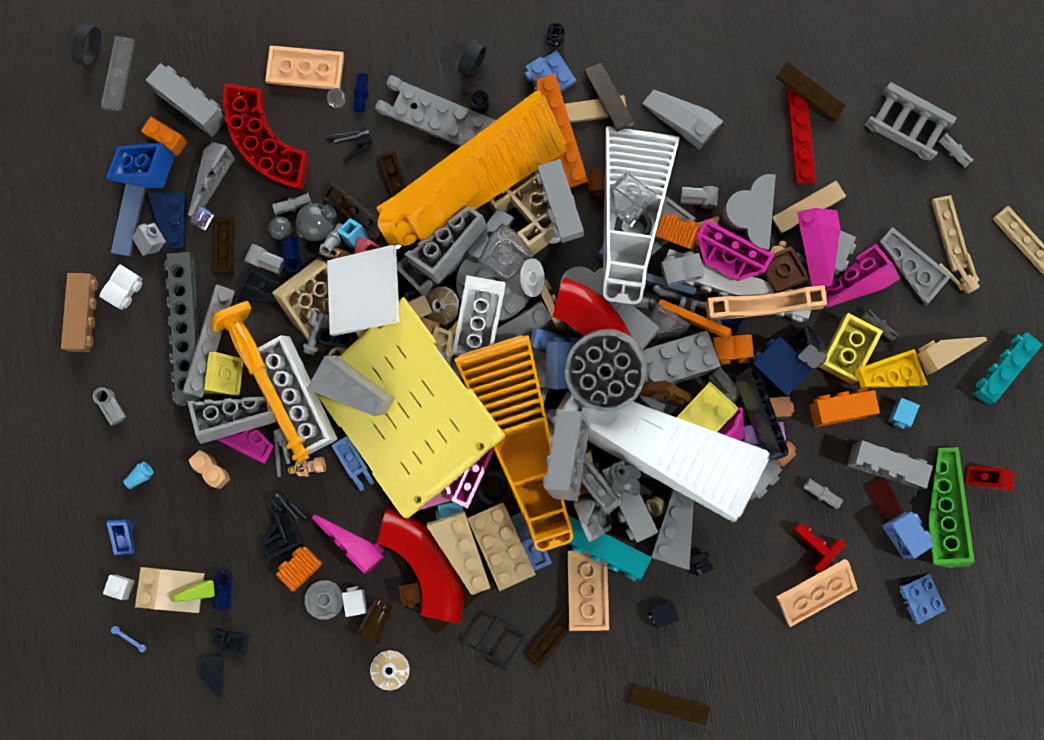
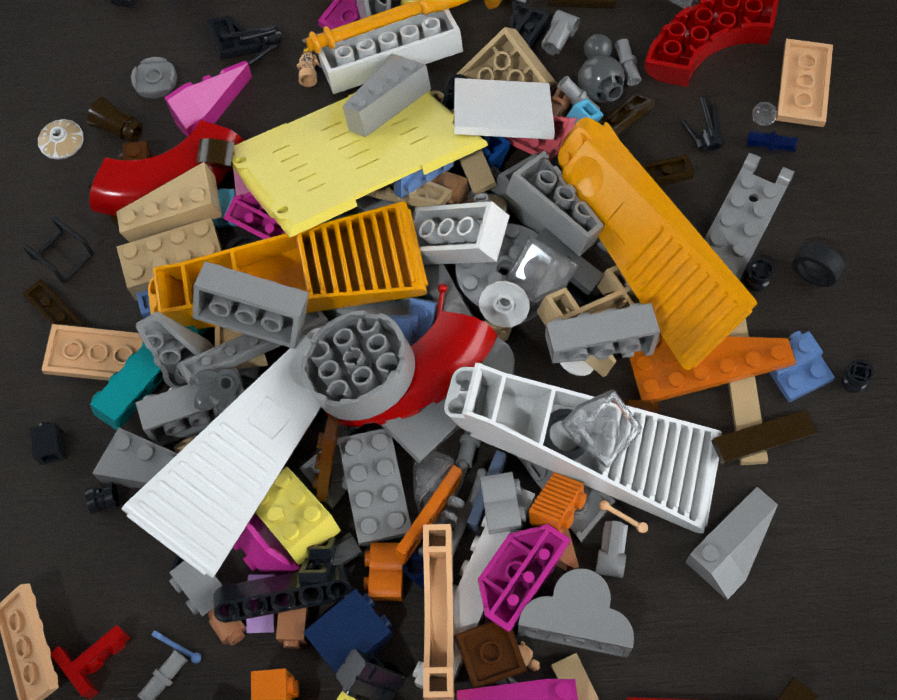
camera: 100 degrees right, 15 degrees down
(291, 255) = (564, 58): clear blue piece -> none
(298, 568) = (192, 51): orange brick -> none
(318, 321) = (449, 70): light grey hinge -> none
(352, 461) = (303, 107): medium blue hinge -> none
(354, 601) = (142, 103): white brick -> none
(411, 522) = (215, 153): none -> dark brown brick
(552, 328) = (442, 288): none -> red hinge
(679, 179) = (641, 527): none -> light nougat hinge
(739, 391) = (319, 563): none -> black slope
(805, 474) = (195, 657): none -> medium blue hinge

